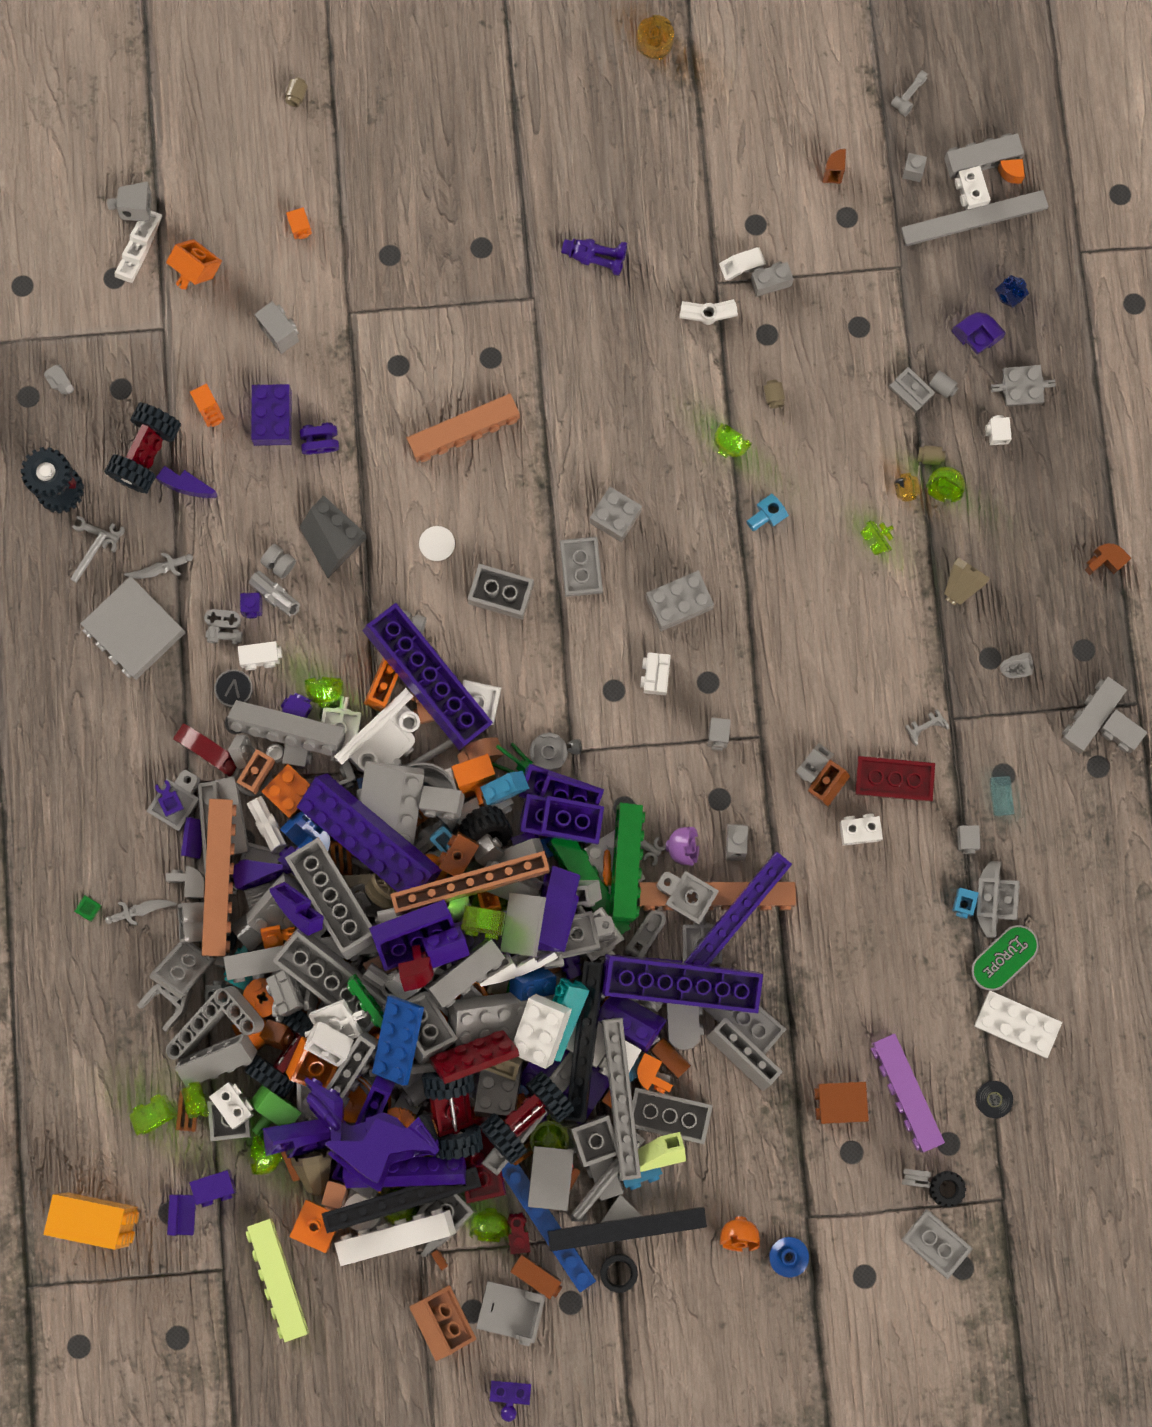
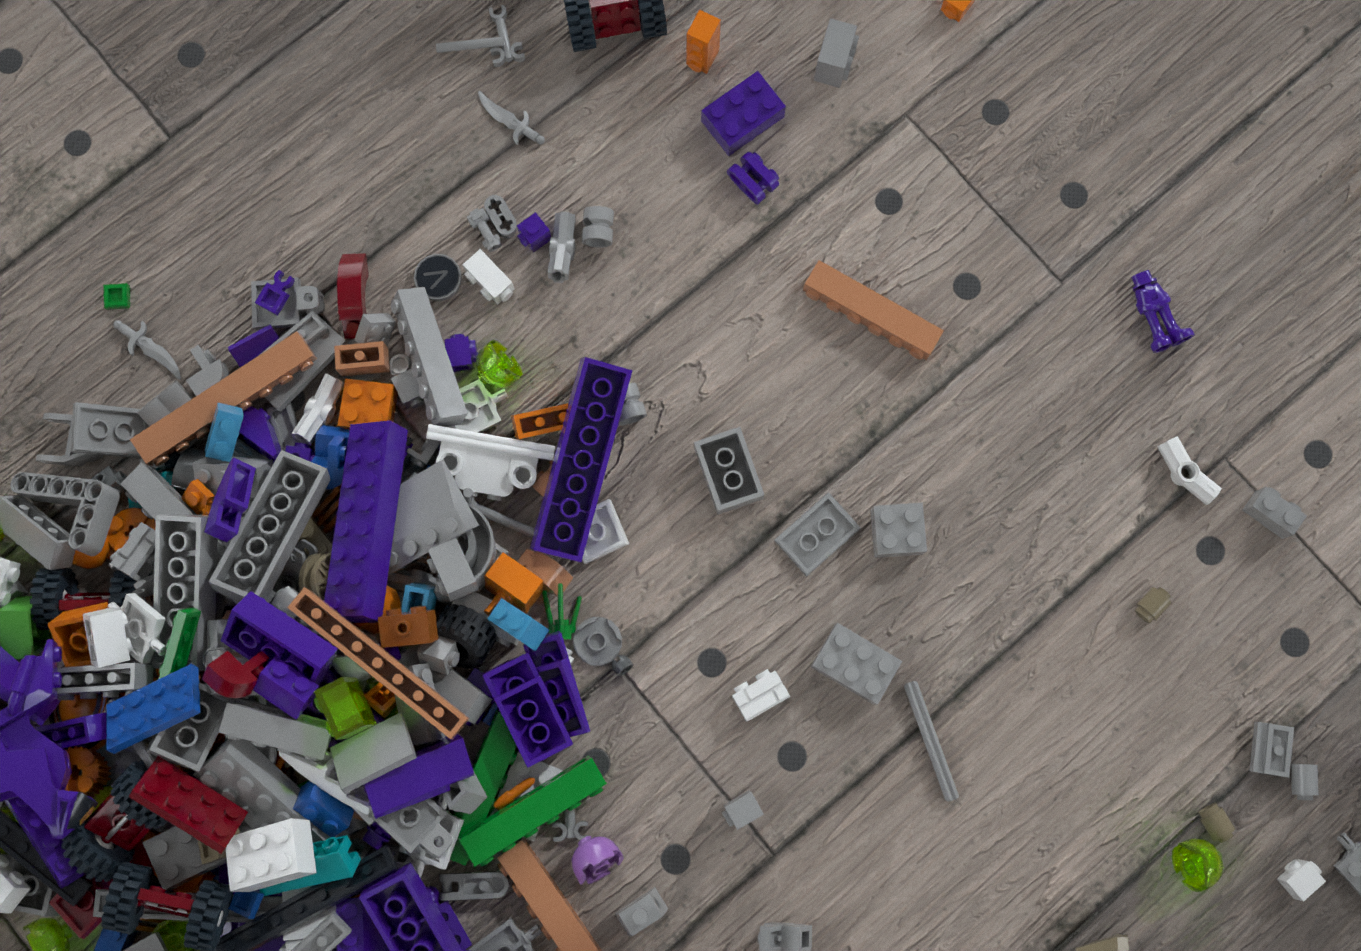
camera: 55 degrees right, 0 degrees up
(132, 628) = (427, 136): light grey brick -> none
(185, 484) = (611, 81): dark purple slope -> none
(242, 890) = (224, 432): none -> dark azure brick
(277, 1035) = (100, 574): dark orange brick -> none
(331, 535) = (663, 259): dark grey wedge -> none
(436, 543) = (733, 370): white sticker -> none
(557, 1072) = (246, 903): none -> blue plate
(678, 893) = (541, 889): light grey plate -> none
(730, 442) = (1066, 595): clear neon green cylinder -> none
(741, 263) = (1266, 468): white slope -> none
(759, 589) = (931, 741): none -> light grey axle
(765, 516) = (1015, 687): dark azure piece -> none
(872, 530) = (1078, 839): clear neon green hips -> none
(907, 487) = (1161, 822): clear yellow head -> none

